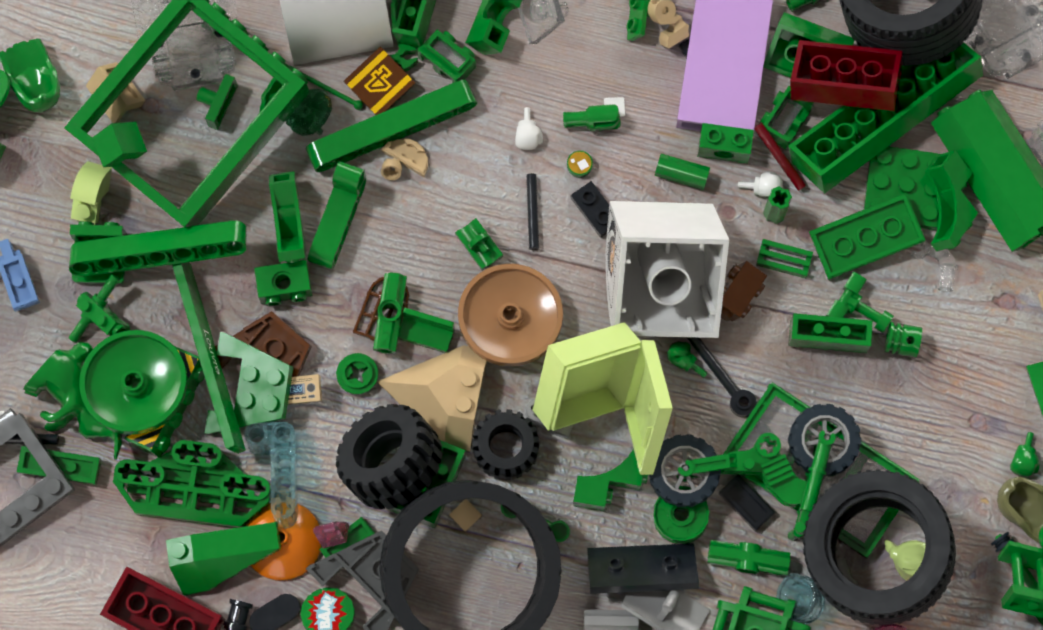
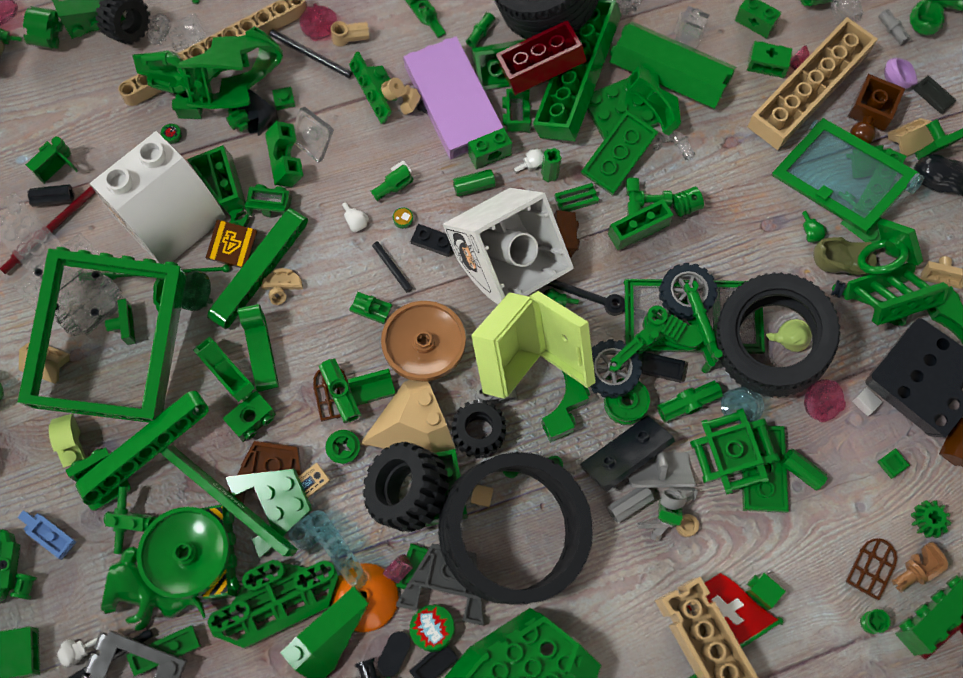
camera: 35 degrees left, 5 degrees down
(119, 143) = (65, 387): green piece -> none
(779, 156) = (529, 135): dark red bar -> none

